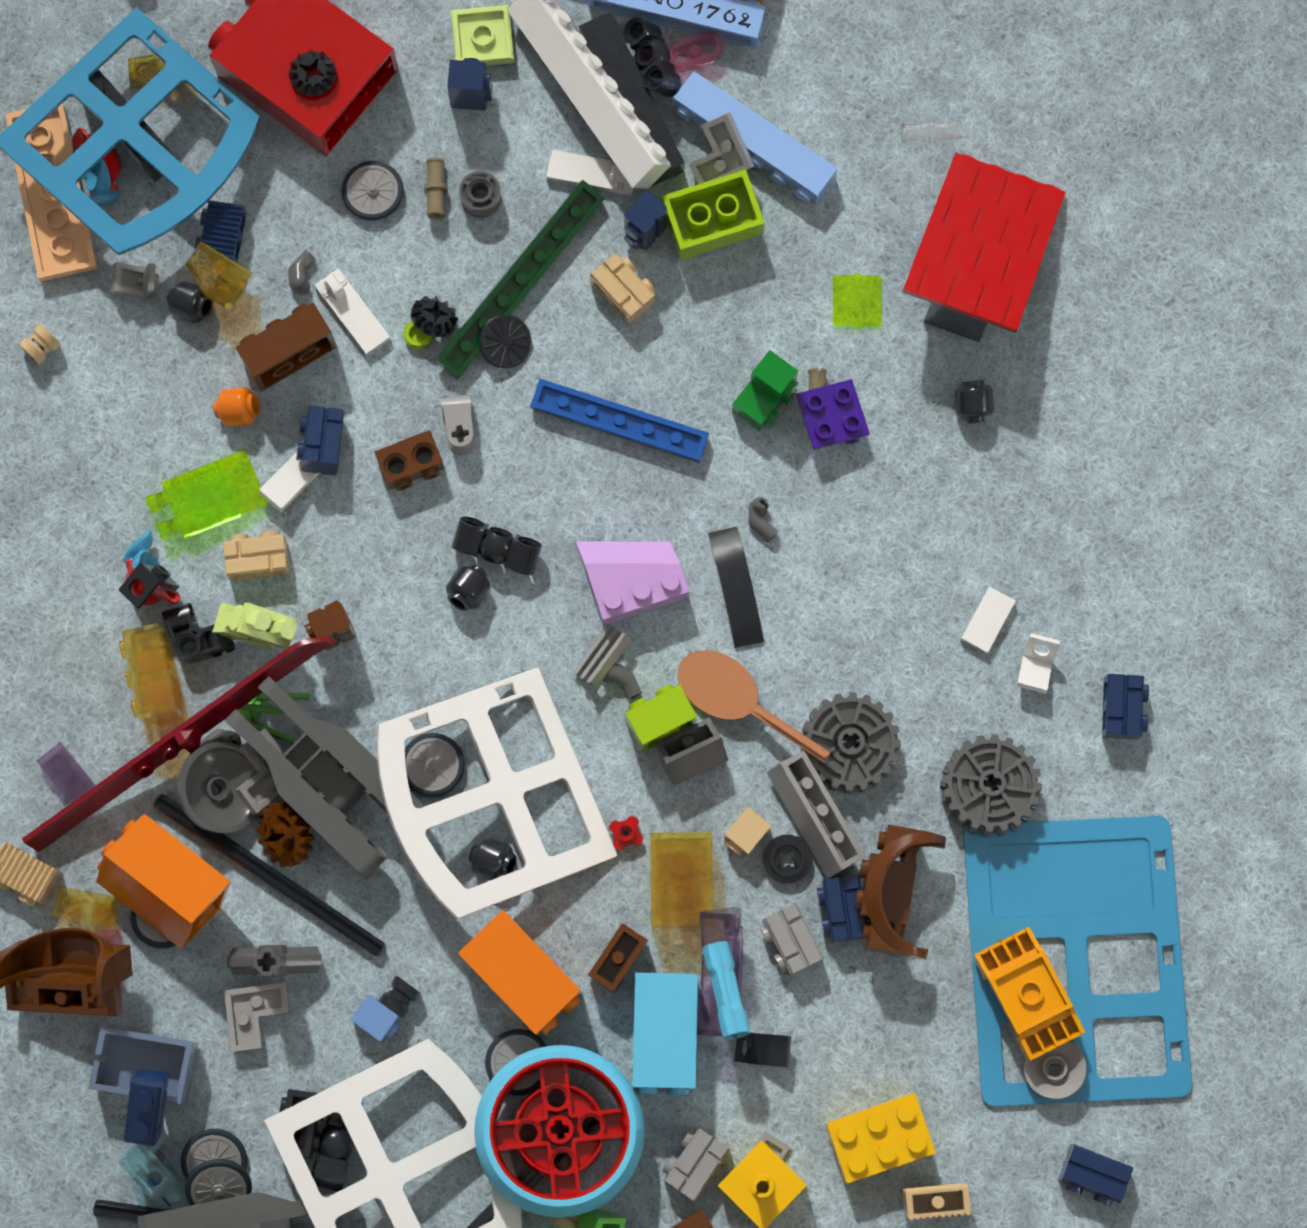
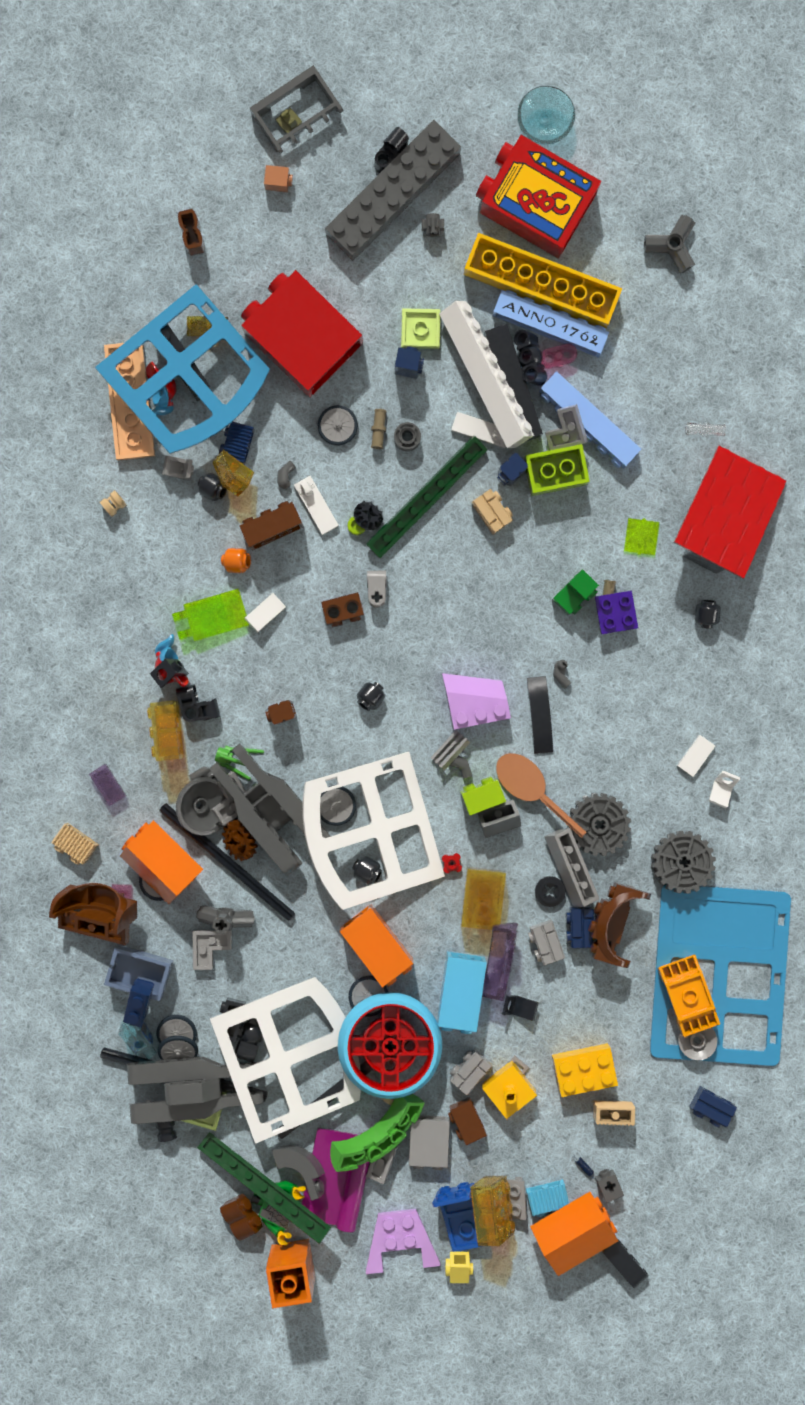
camera: 10 degrees right, 10 degrees up
(86, 907) = (111, 868): clear yellow slope -> none
(185, 736) = (183, 773): dark red piece -> none
(255, 625) = (234, 707): yellowish green hips -> none
(256, 556) = (238, 659): tan brick -> none
(317, 84) = (309, 355): black gear -> none
(322, 440) = (288, 589): dark blue brick -> none
(376, 1019) = (285, 960): medium blue brick -> none
(398, 998) = (300, 948): black wheel -> none
(496, 545) = (392, 671): black piece -> none
(505, 341) = (412, 537): black wheel -> none
(618, 958) = (437, 942): reddish brown brick -> none
(619, 420) = (479, 598): blue plate -> none
(731, 1012) = (504, 988): medium azure axle -> none
(746, 832) = (526, 873): tan brick -> none
(1124, 706) = (773, 822): dark blue brick -> none

